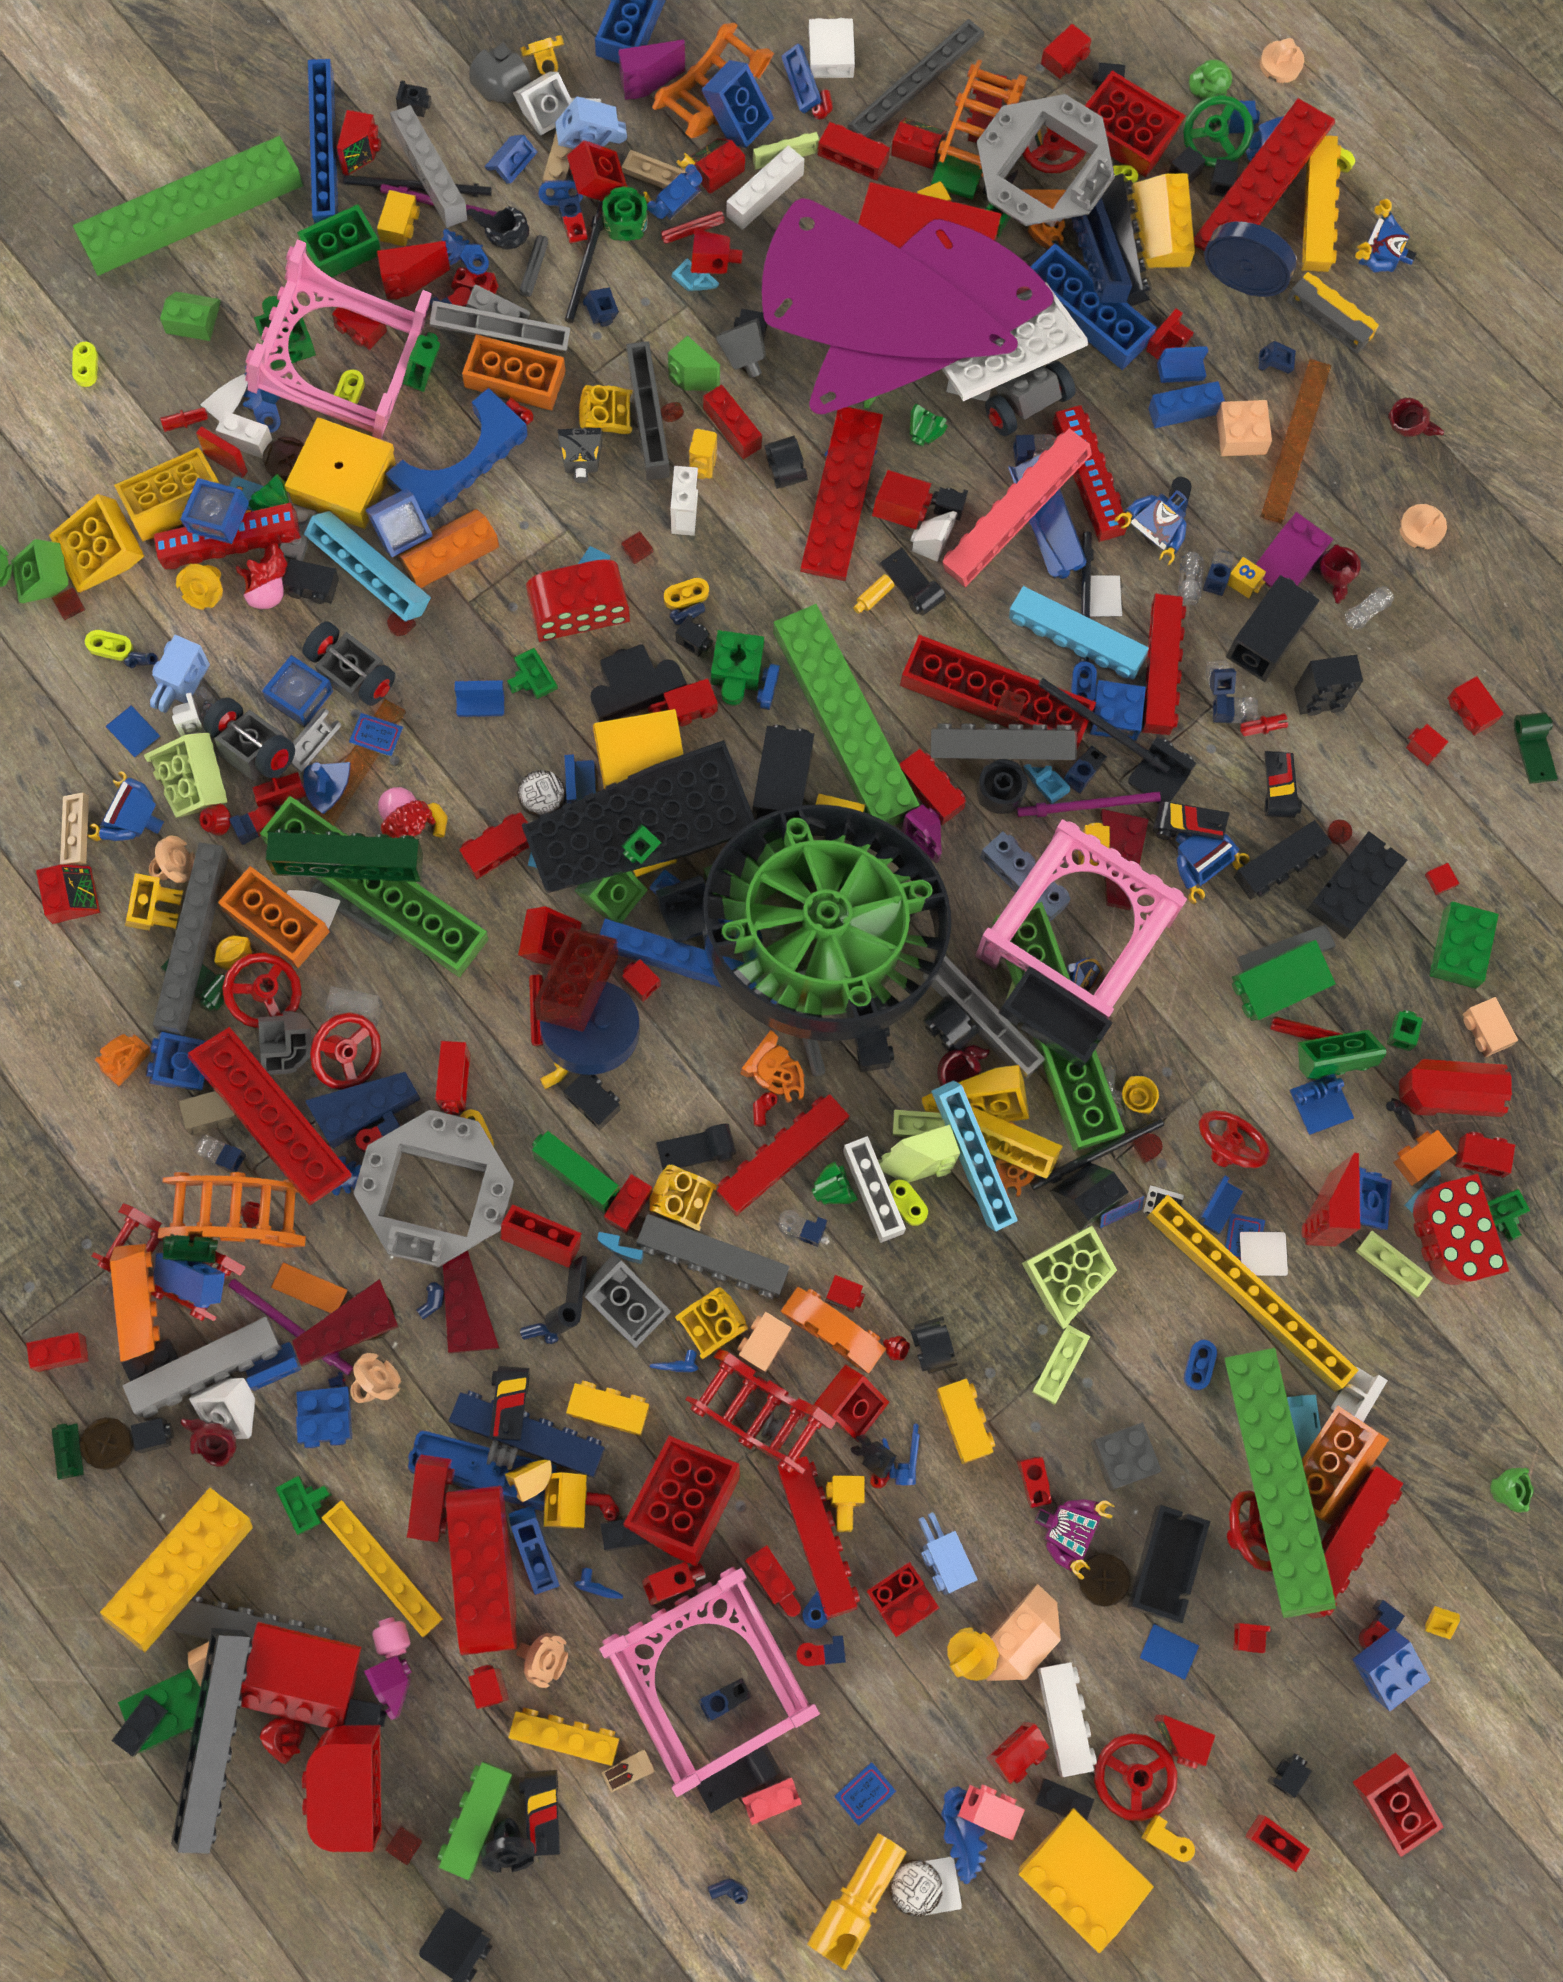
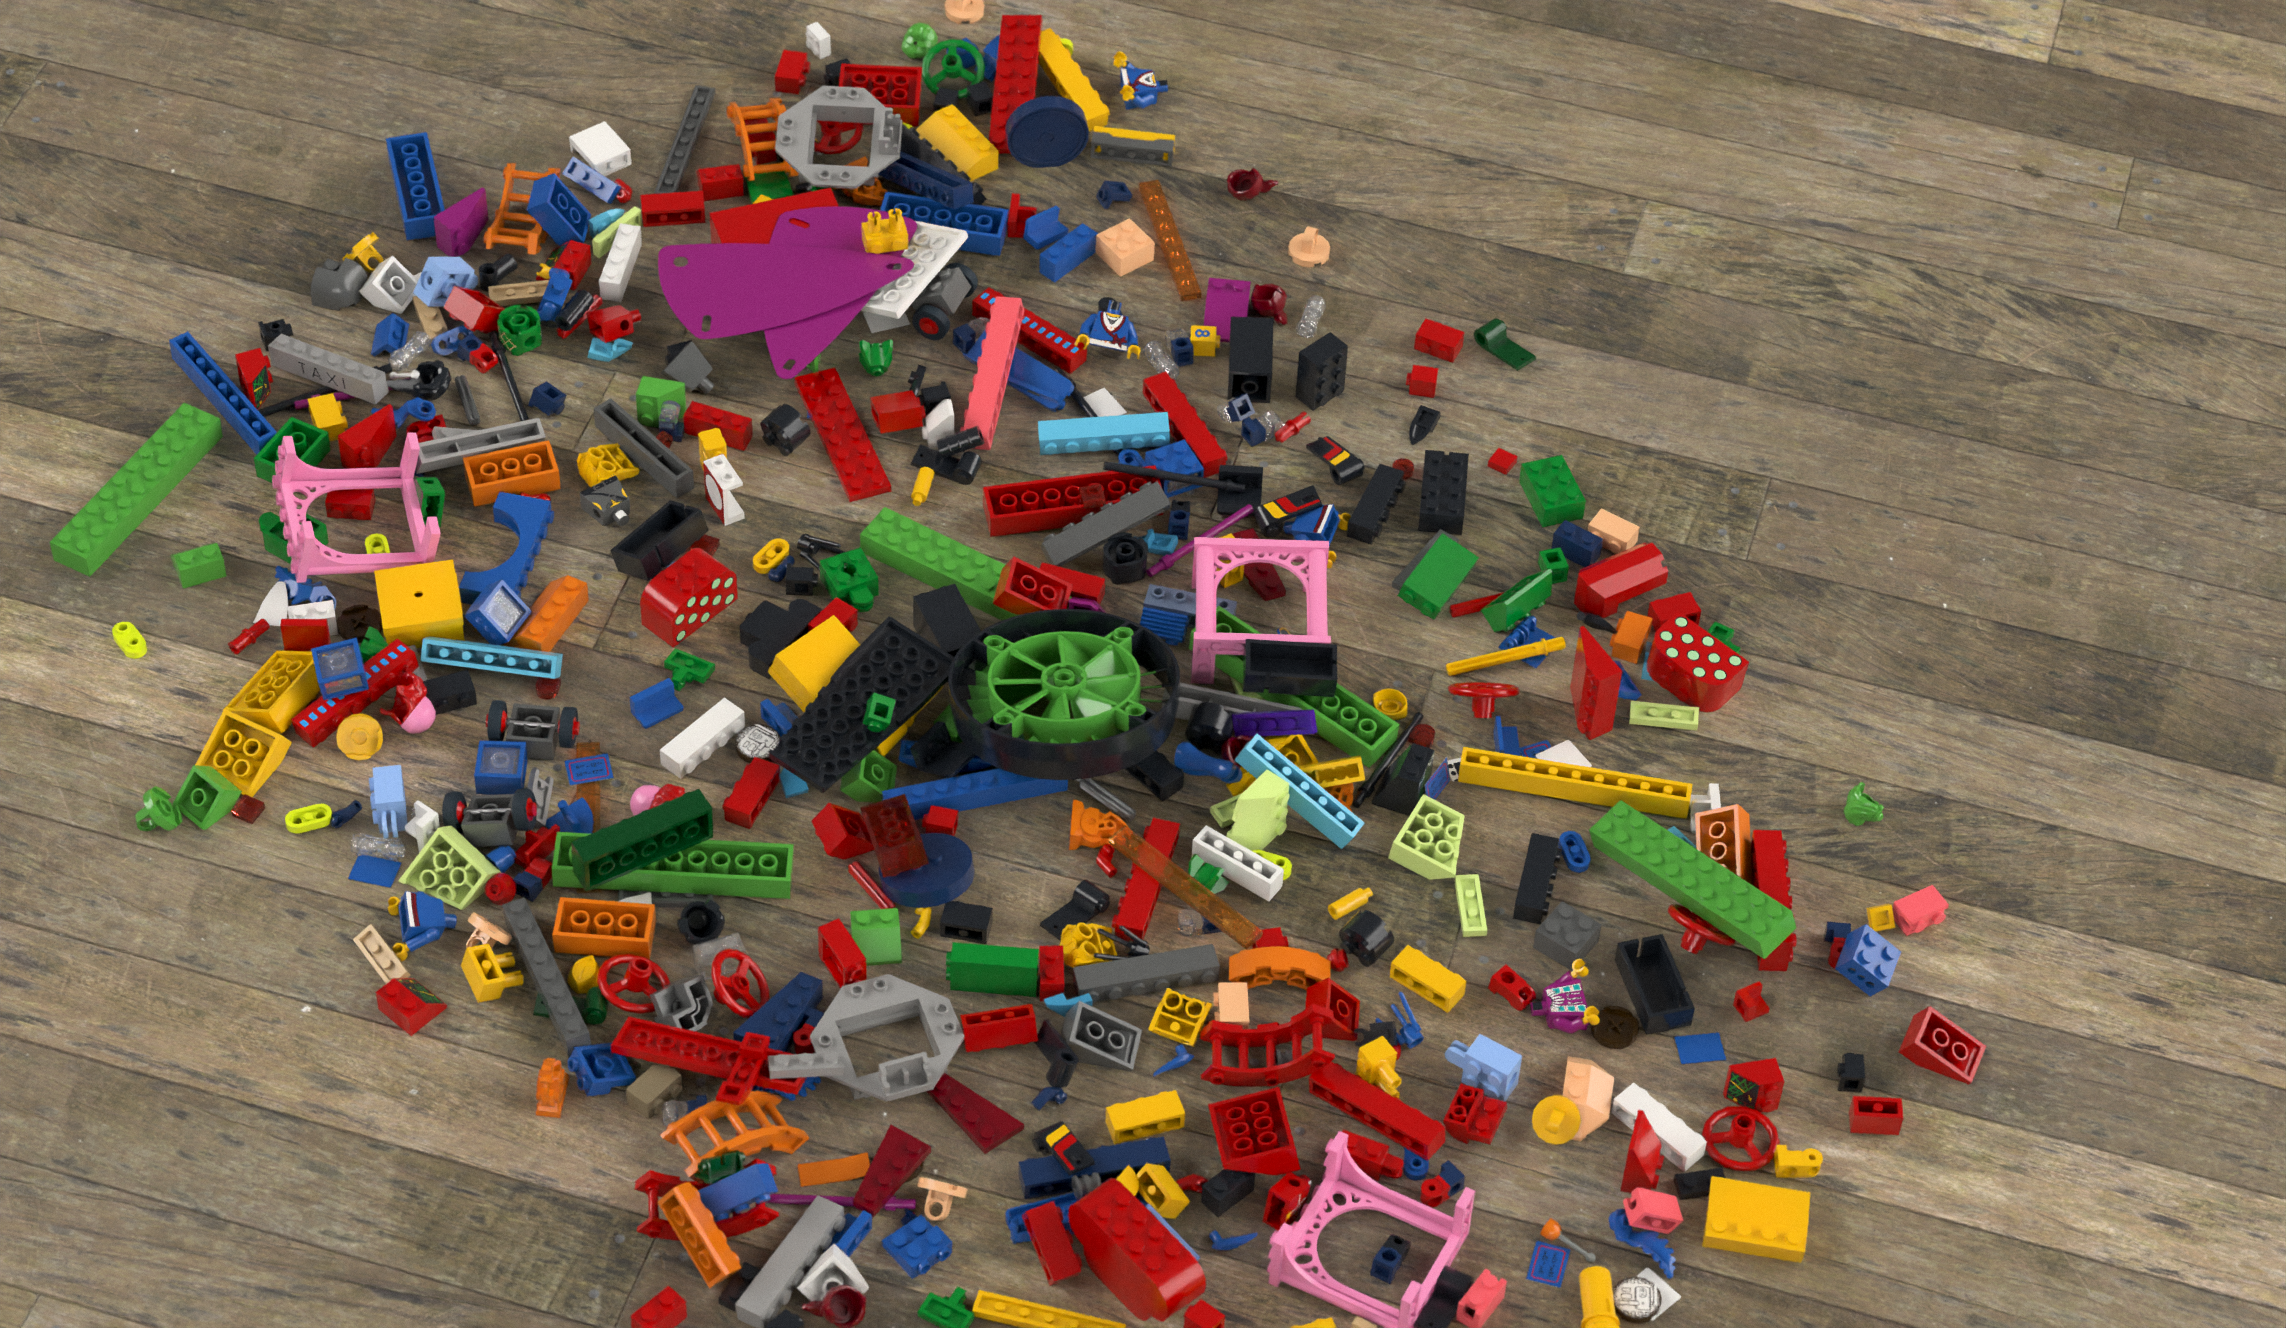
camera: 30 degrees left, 25 degrees down
(137, 704) = (368, 845): none -> clear piece
(237, 788) = (502, 858): none -> blue hat
(270, 1162) = (745, 1071): none -> red slope
(334, 1181) = (805, 1065): none -> light grey plate
(358, 961) = (701, 922): none -> black helmet
(434, 1300) = (946, 1123): dark blue arm -> none
(494, 760) = (702, 738): none -> white brick
(497, 215) = (415, 374): none -> white hinge
(502, 1068) = (877, 935): none -> bright green slope
(508, 186) = (403, 357): none -> clear piece
(543, 1659) = (1228, 1301): light nougat tile -> none
(592, 523) = (659, 540): none -> black piece
(646, 136) = (492, 273): none -> black piece
(685, 220) = (574, 310): none -> black axle
(690, 395) = (669, 420): none -> clear leg
(719, 1223) = (1133, 948): none -> black plant
(729, 603) = (811, 545): none -> black plant
(770, 678) = (889, 587): blue plate -> none
(776, 132) = (602, 221): none -> medium azure plate
(805, 1191) = (1185, 887): none -> clear orange tile
(879, 784) = (1029, 589): none -> red slope
(890, 1766) = (1552, 1231): none -> hinge
(913, 1058) = (1199, 764): none -> blue piece
(934, 569) = (960, 442): none -> black axle
(945, 472) = (916, 379): none -> black plate
(951, 1291) = (1349, 903): none -> yellow cylinder
(986, 882) = (1165, 624): none -> blue brick
(1002, 1067) = (1275, 723): none -> dark purple plate
(1009, 300) = (884, 234): none -> yellow brick
(1114, 28) = (818, 40): none -> white piece
(1142, 1374) = (1536, 878): none -> black brick
(1287, 1107) = (1504, 656): none -> yellow axle
(1392, 793) = (1423, 423): none -> black plate
(1444, 1021) = (1577, 544): none -> dark blue brick
(1487, 1639) = (1919, 910): none -> coral brick

